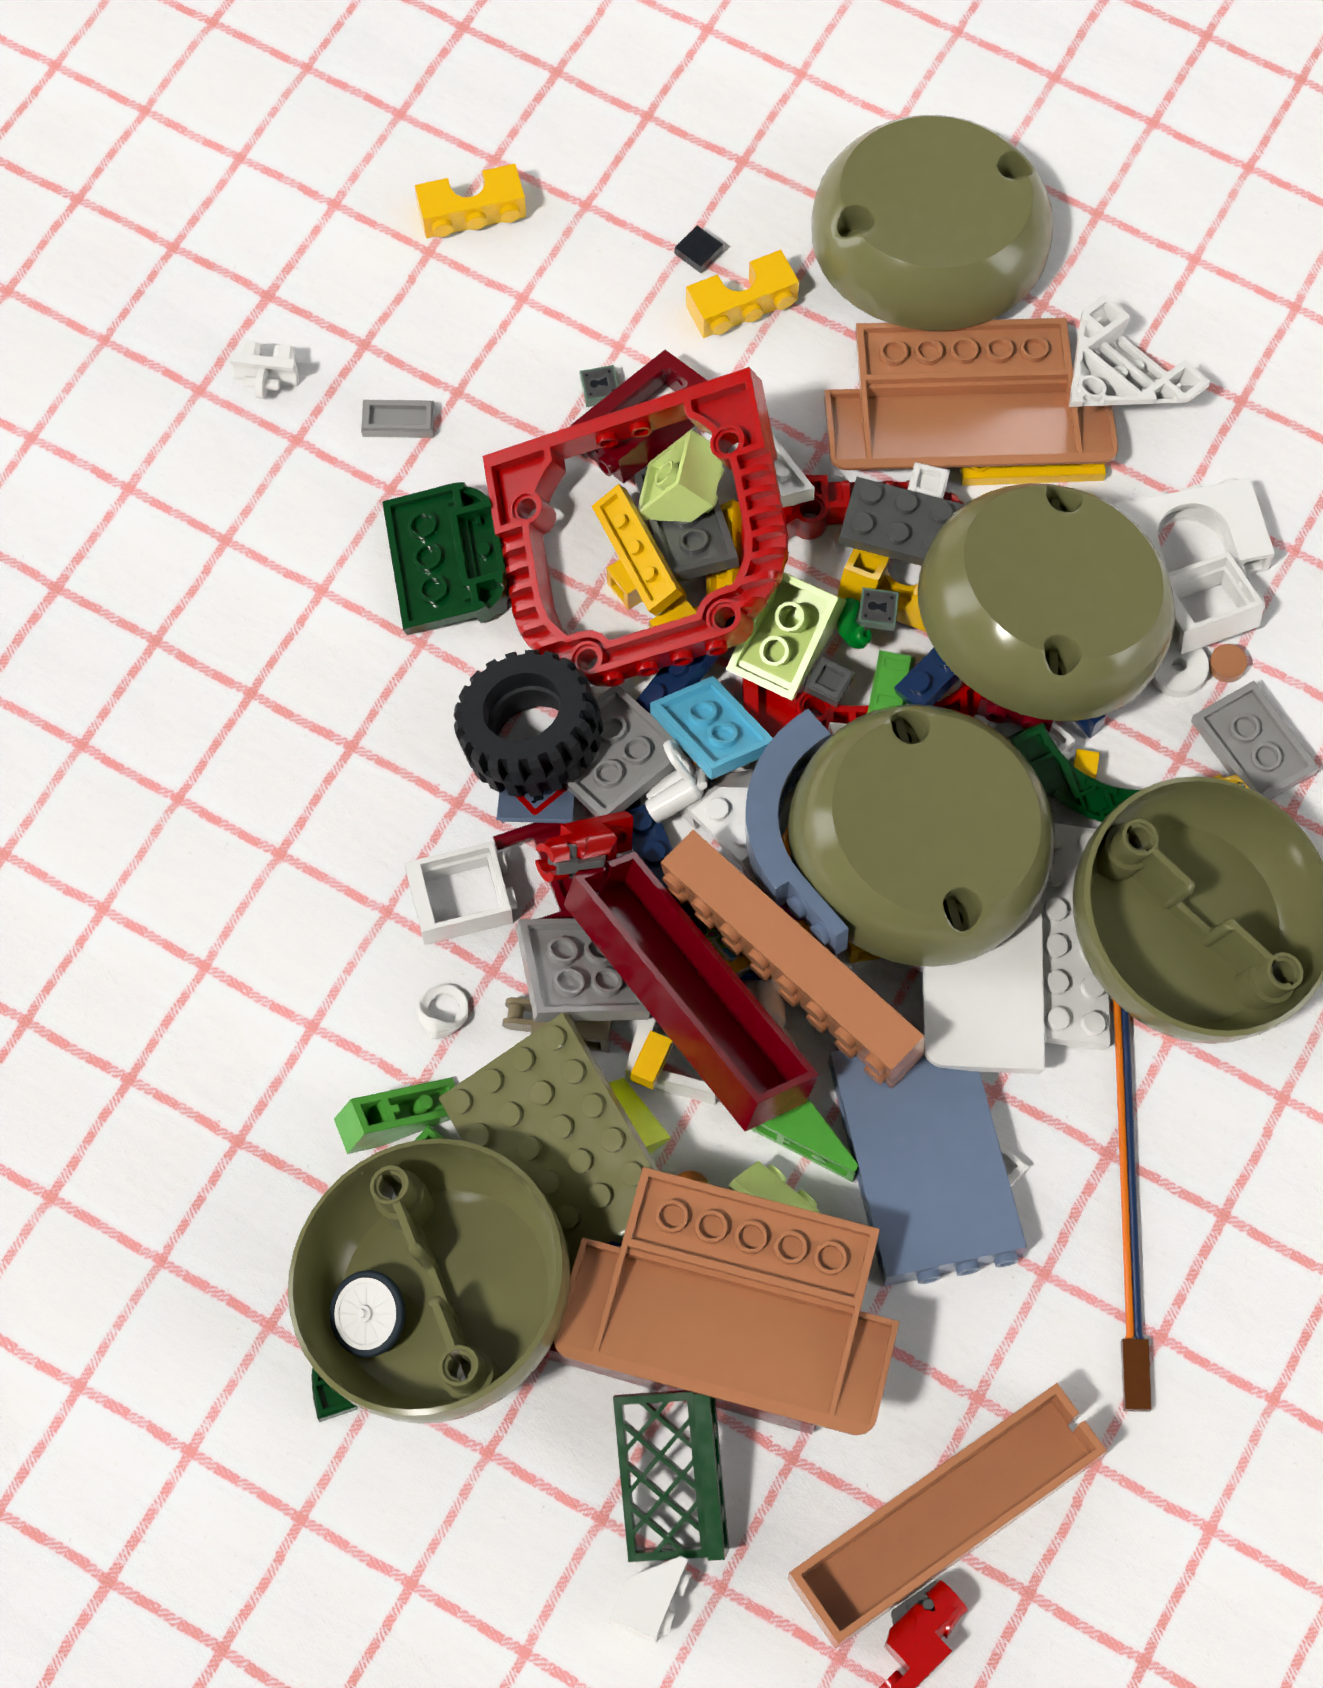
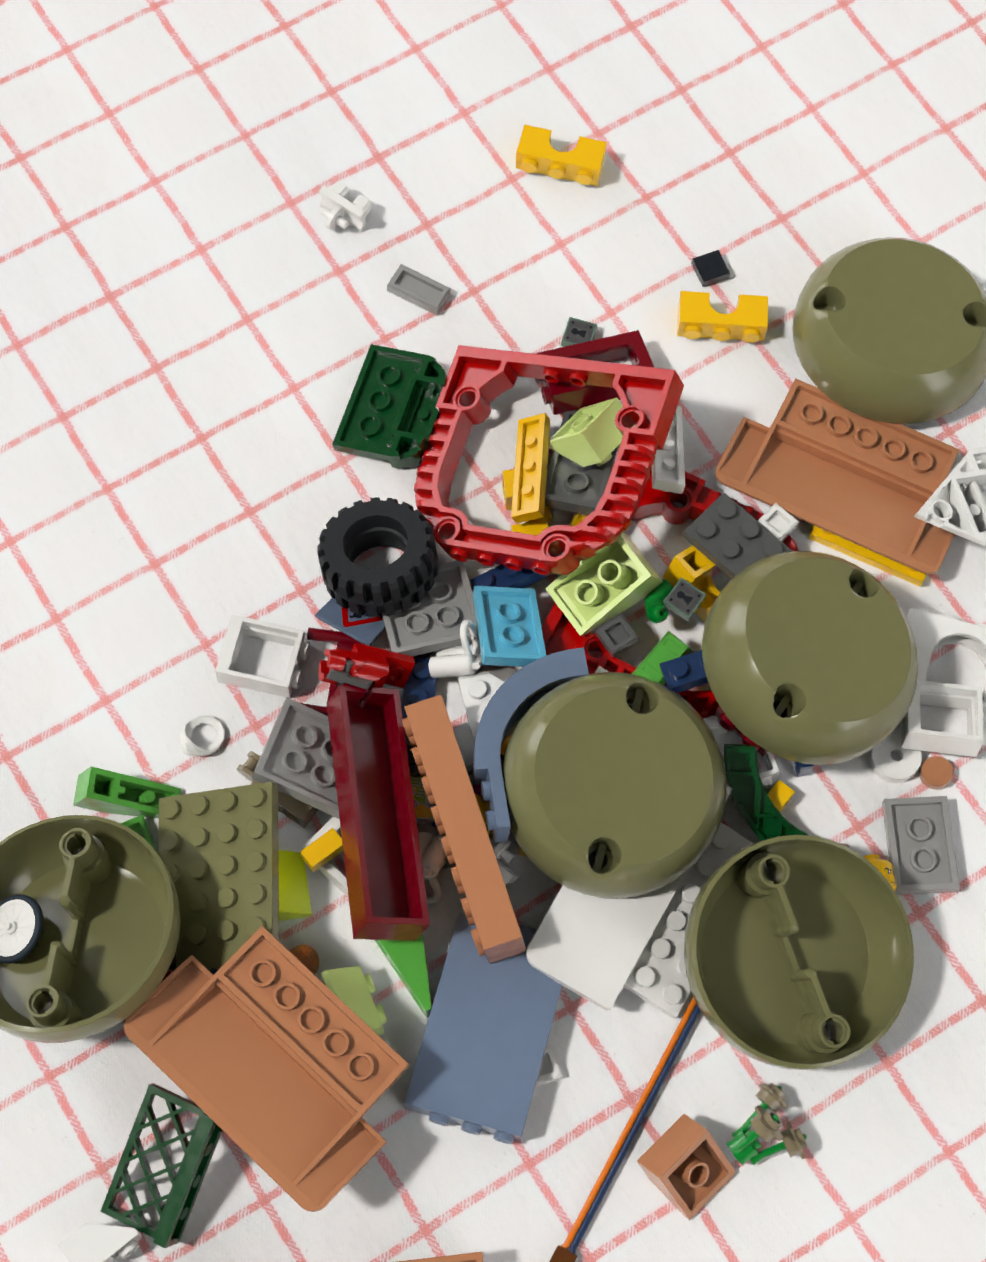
camera: 25 degrees right, 0 degrees up
(1206, 1188) = (687, 1166): none -> nougat slope
(1269, 1103) = (766, 1125): none -> plant

